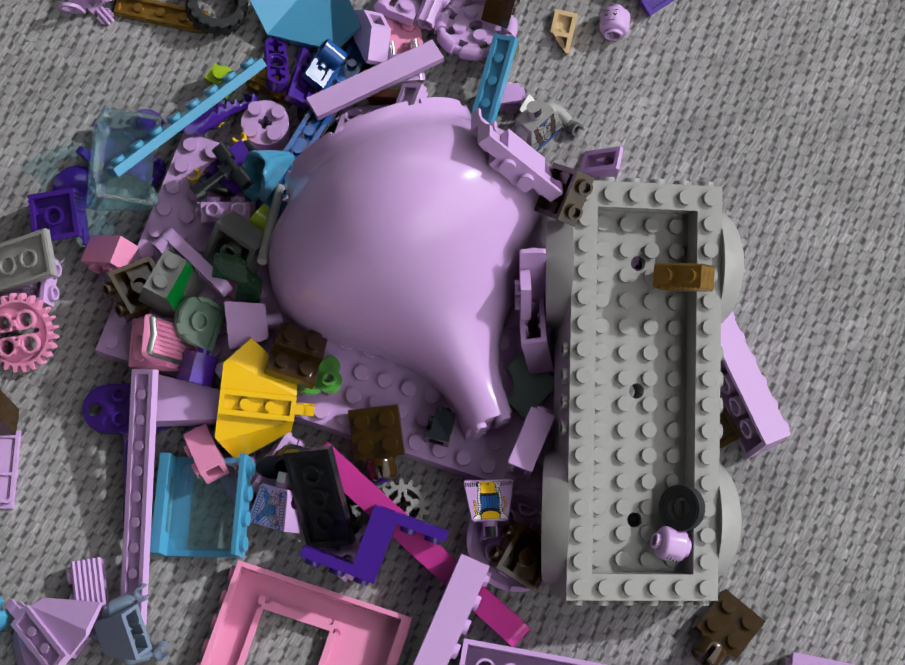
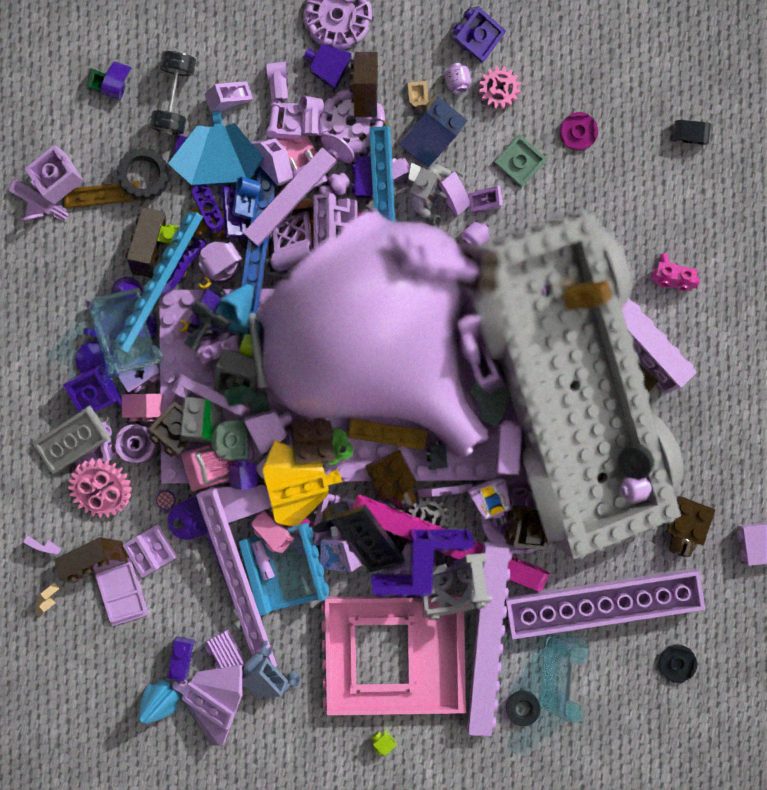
camera: 15 degrees left, 15 degrees up
(30, 573) = (180, 658): none -> dark purple brick
(47, 431) = (150, 550): none -> lavender slope
(72, 296) = (126, 440): none -> lavender brick
(91, 377) = (165, 500): none -> tile
(110, 222) = (136, 384): none -> lavender brick
(180, 487) = (262, 560): none -> lavender pin
(188, 76) = (145, 242): none -> dark brown wedge
(268, 119) = (221, 260): none -> lavender beam
(389, 382) = (387, 434): none -> pearl gold tile
(424, 614) = (475, 591): none -> light grey fence
(426, 476) = (437, 491): none -> lavender tile
(437, 87) = (336, 184): none -> lavender animal
(451, 48) = (337, 148): none -> lavender dish
(468, 85) = (363, 183): none -> dark purple brick
(566, 67) = (432, 131): none -> dark blue slope
(569, 142) = (455, 192): none -> lavender slope
(652, 55) = (504, 94): none -> bright pink gear
(657, 135) = (520, 160): none -> sand green tile
(736, 126) = (579, 131): none -> magenta tile
(799, 322) = (674, 276): none -> dark pink brick
(868, 169) = (692, 132): none -> black beam

